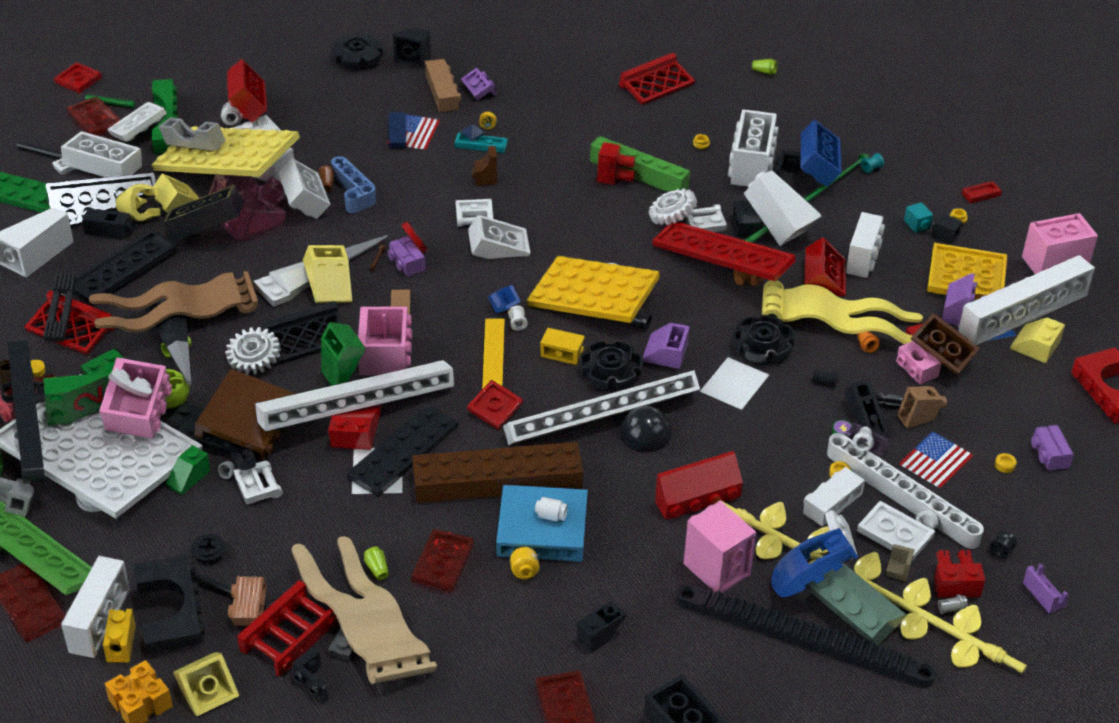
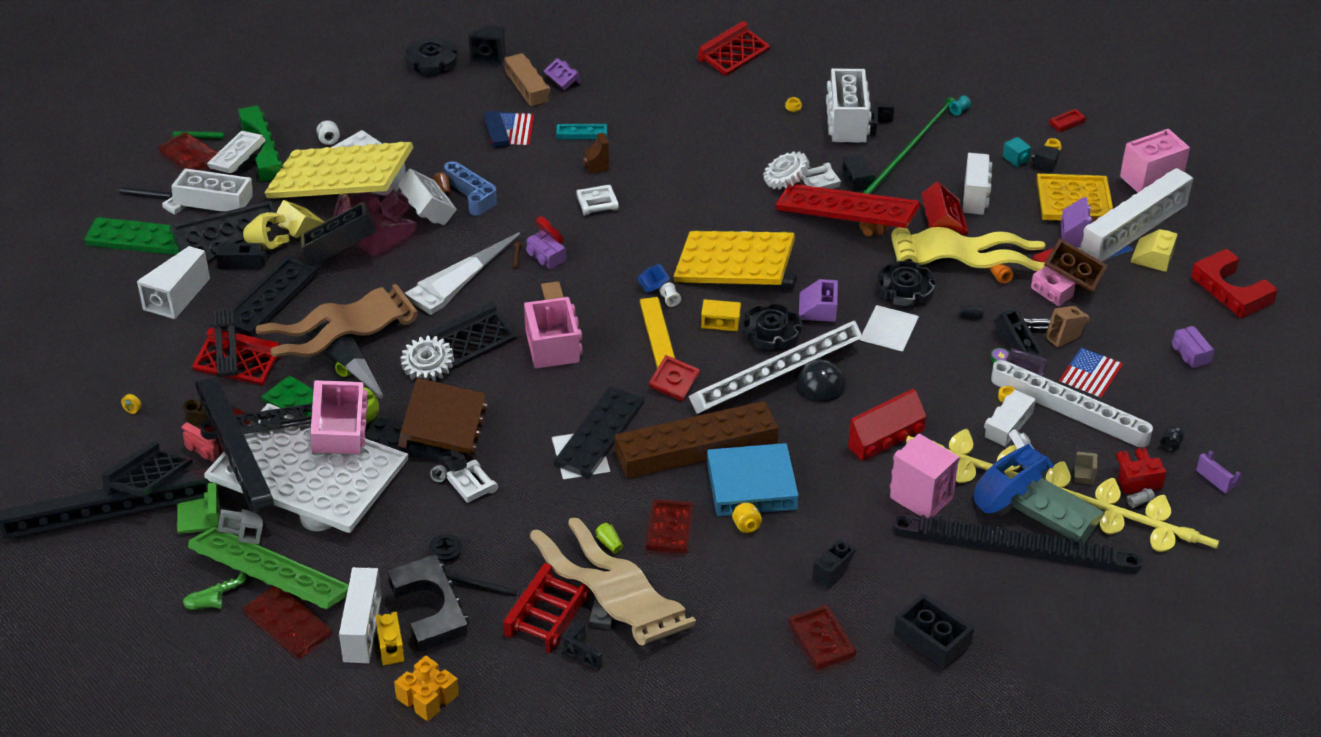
camera: 10 degrees left, 0 degrees up
(73, 397) = (276, 424): green slope -> none
(78, 77) = (157, 115): red tile -> none
(138, 386) = (342, 405): white slope -> none
(188, 470) = (402, 478): green slope -> none
(206, 683) = (486, 668): light yellow slope -> none
(207, 136) = (286, 158): light grey arch -> none
(246, 91) = (339, 108): red brick -> none
(248, 600) = (501, 588): nougat brick -> none
(328, 273) = (478, 275): light yellow slope -> none
(340, 353) = (517, 351): green slope -> none
(354, 395) = (541, 387): white brick -> none
(354, 428) = (547, 415): red slope -> none
(472, 132) = (572, 122): dark blue slope -> none
(487, 120) = (582, 108): yellow tile -> none
(497, 239) = (627, 222): white slope -> none
(551, 509) = (760, 465): white brick -> none
(609, 164) = (714, 137): red brick -> none
(648, 168) = (742, 134): bright green brick -> none
(765, 66) = (833, 24): lime cone -> none
(780, 207) = (890, 157): white slope -> none
(820, 153) = (912, 102): blue brick -> none
(863, 439) = (1026, 362): white cone -> none
(892, 527) = (1071, 438): white plate -> none
(927, 518) = (1099, 427): white tile -> none
(1005, 463) = (1154, 366): yellow tile -> none

